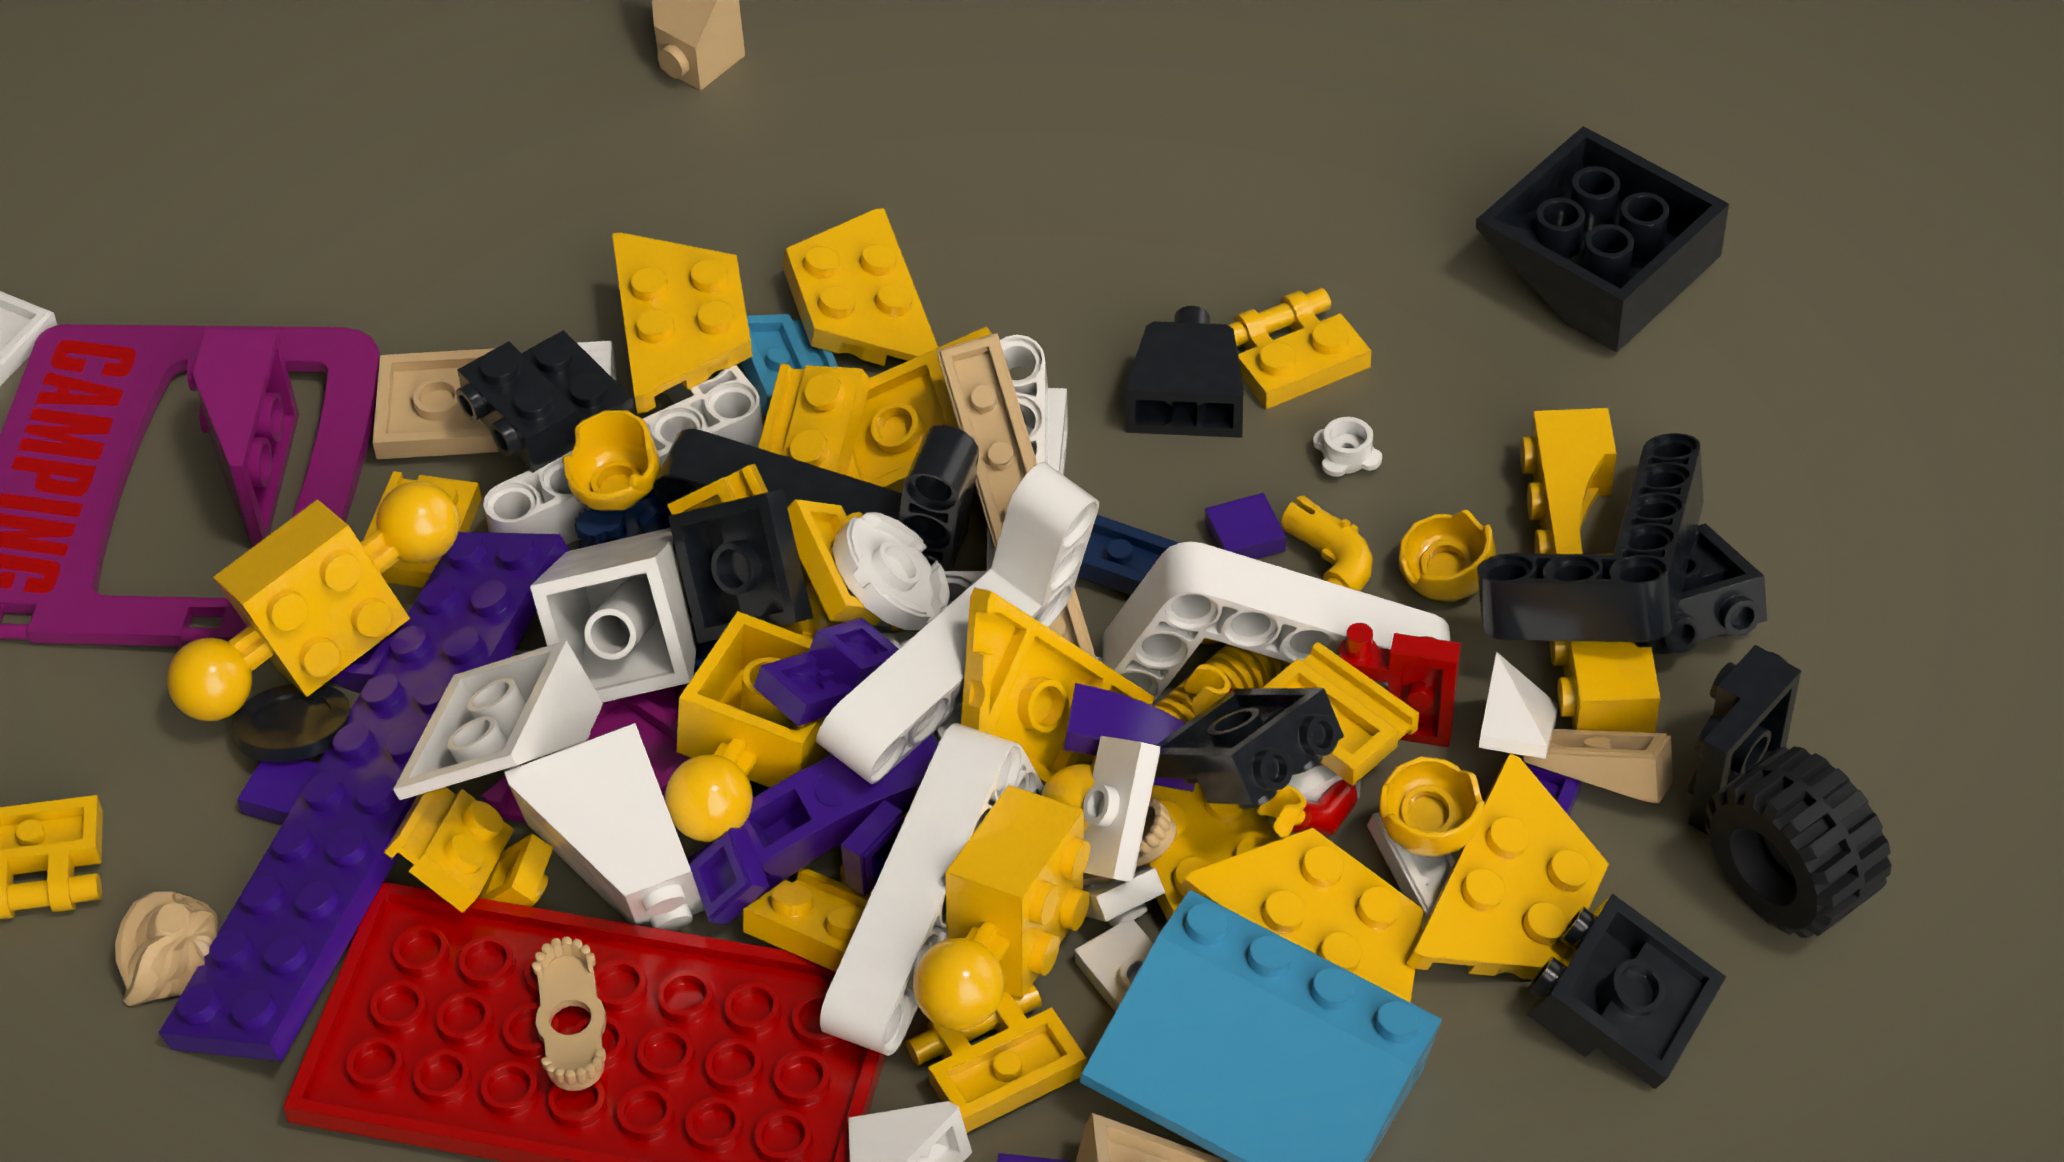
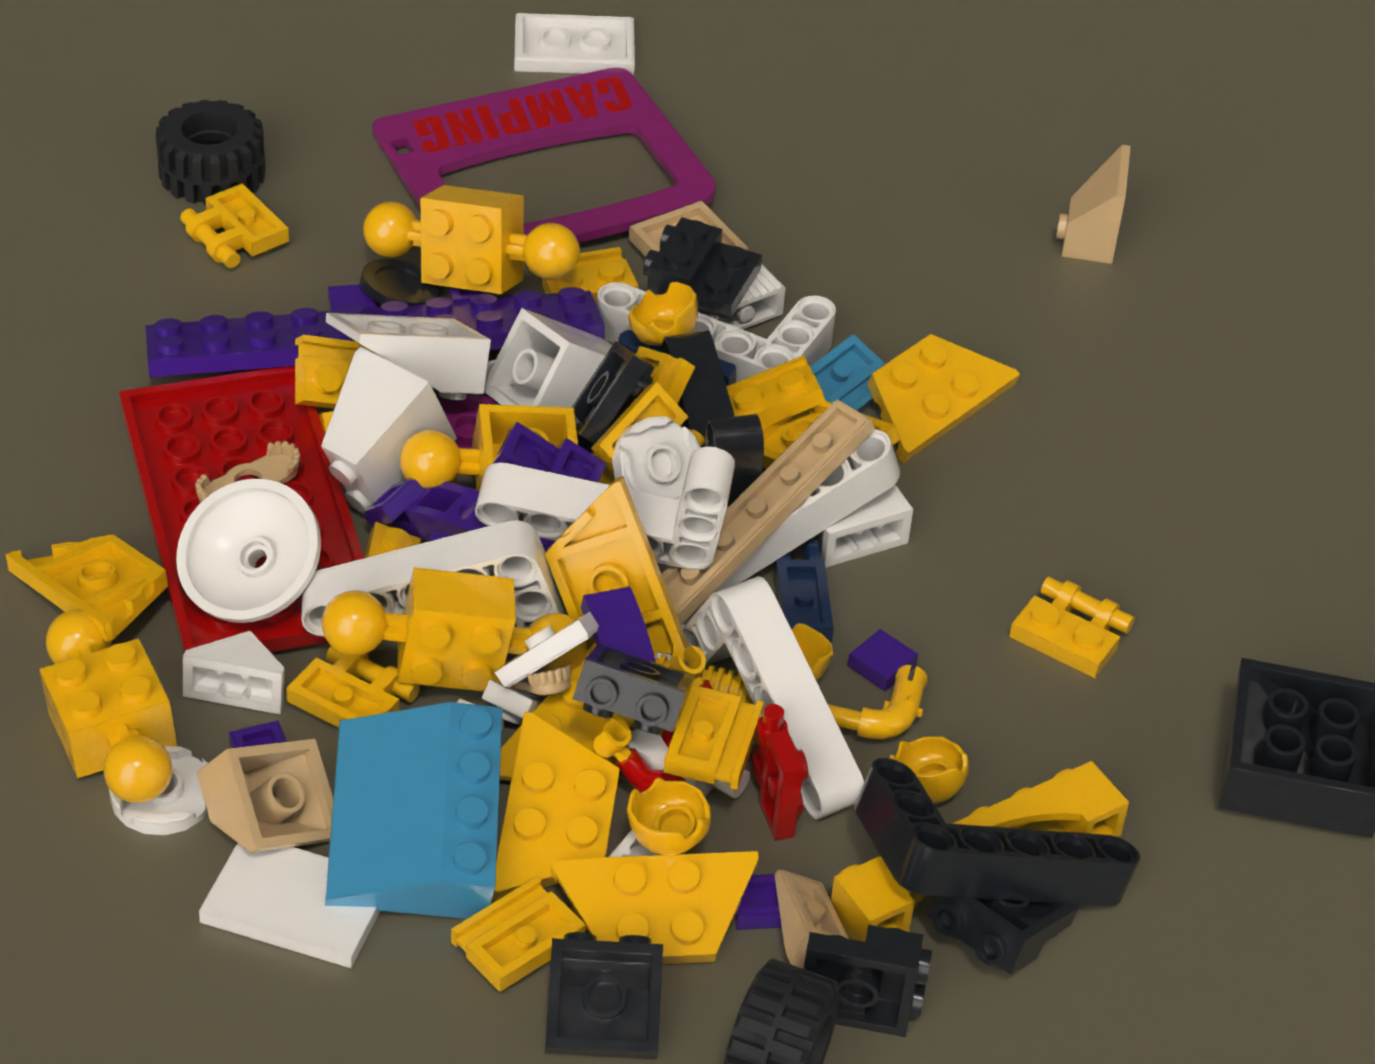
camera: 55 degrees right, 5 degrees down
(162, 945) = (210, 296): tan hat -> none
(249, 416) = (588, 164): magenta slope -> none
(678, 314) = (821, 303): yellow wing -> none
(786, 1021) = (228, 538): none -> white dish
(1186, 379) = (988, 574): black torso -> none
(1347, 447) = (999, 685): white plate -> none
(1485, 1040) = (515, 933): none -> yellow plate
(1517, 714) = (800, 846): white slope -> none

